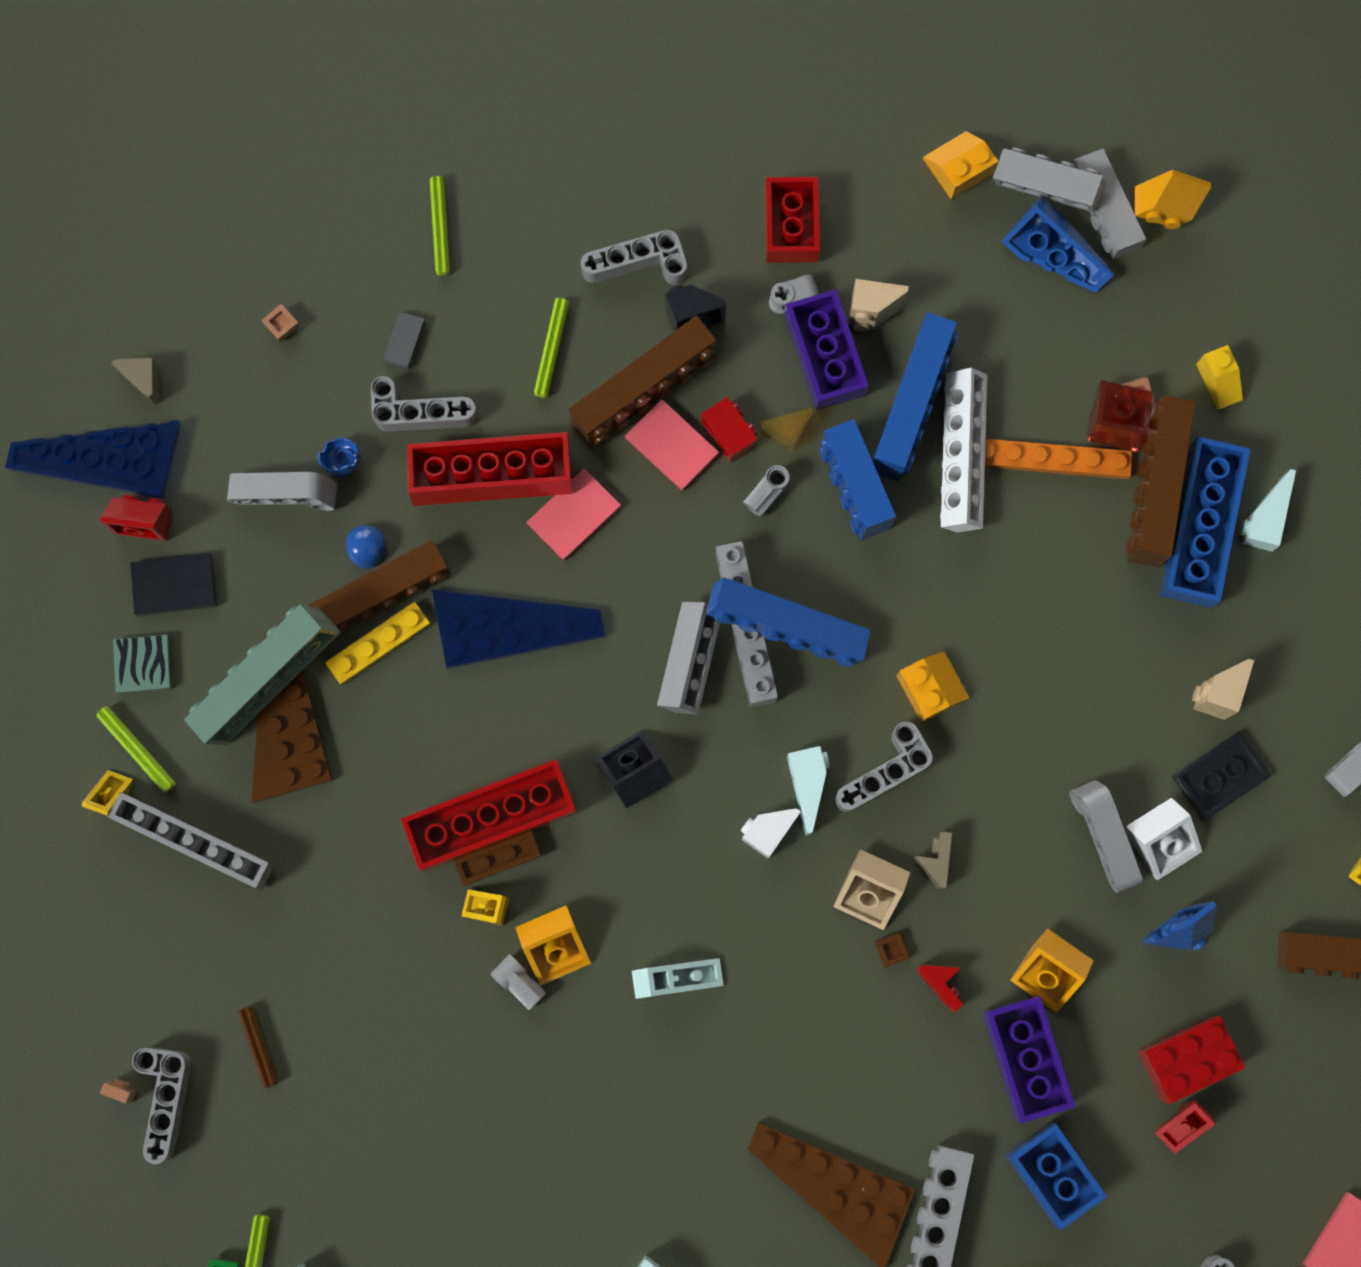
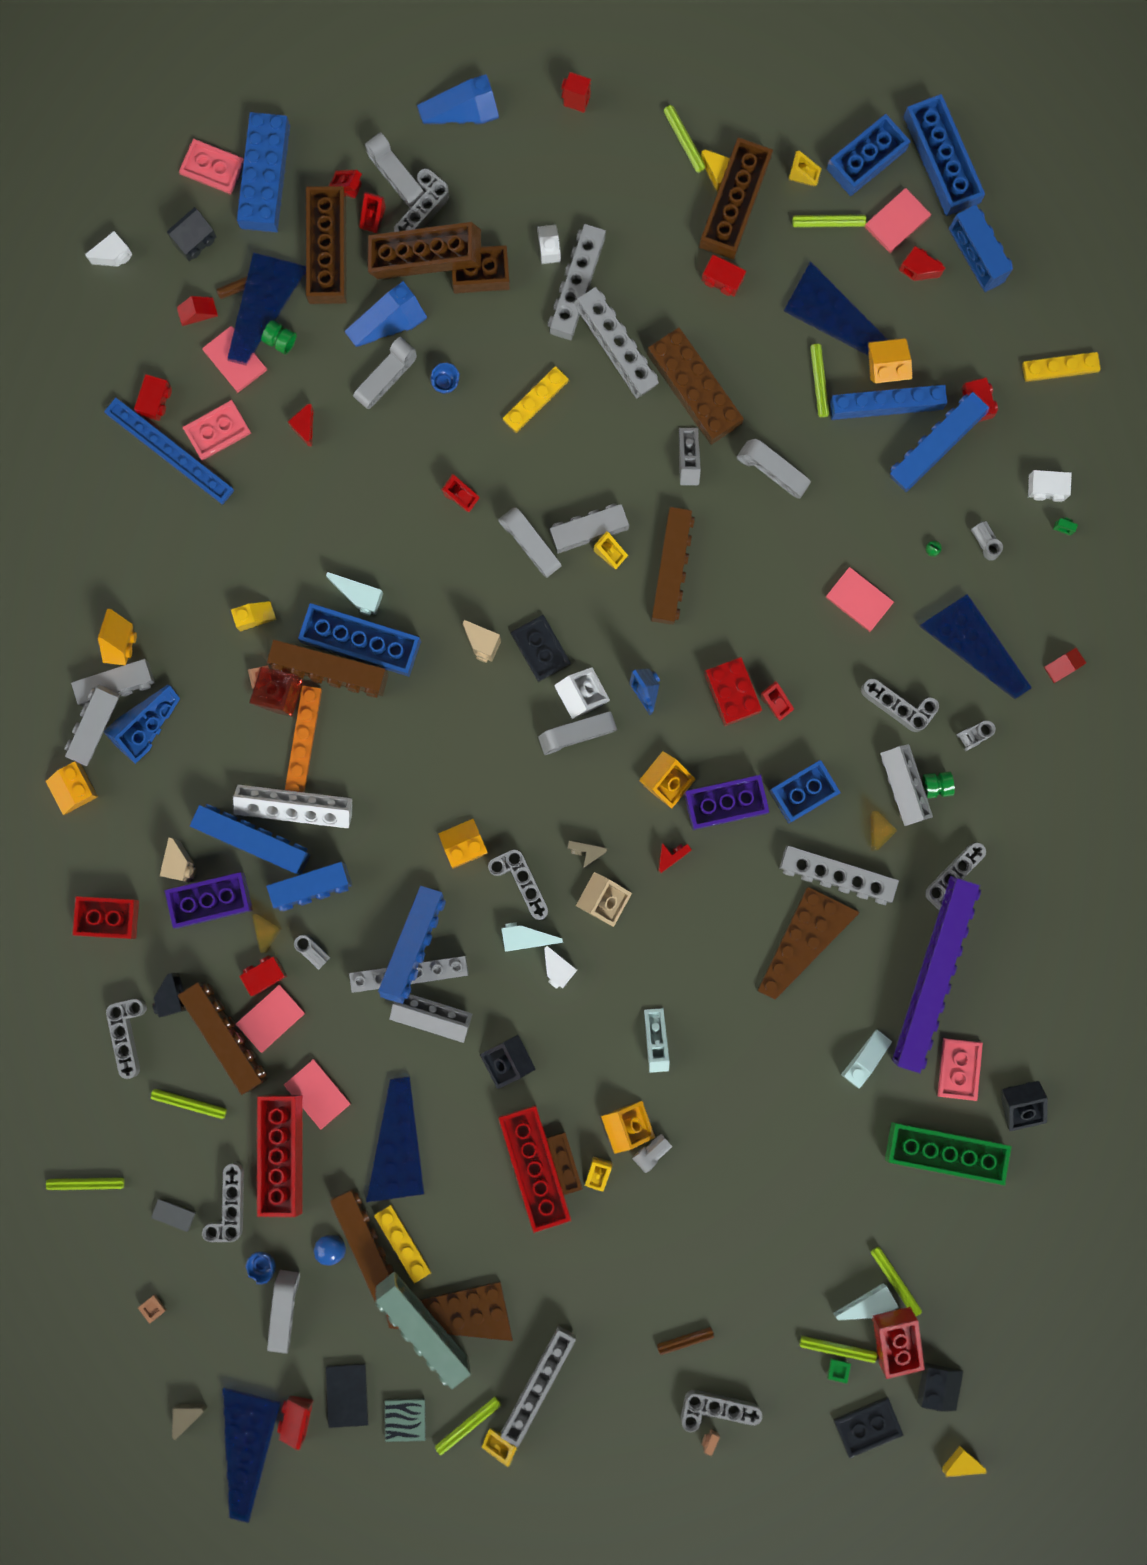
camera: 90 degrees left, 5 degrees up
(792, 291) = (161, 919): light grey piece -> none
(892, 950) = (646, 888): reddish brown tile -> none

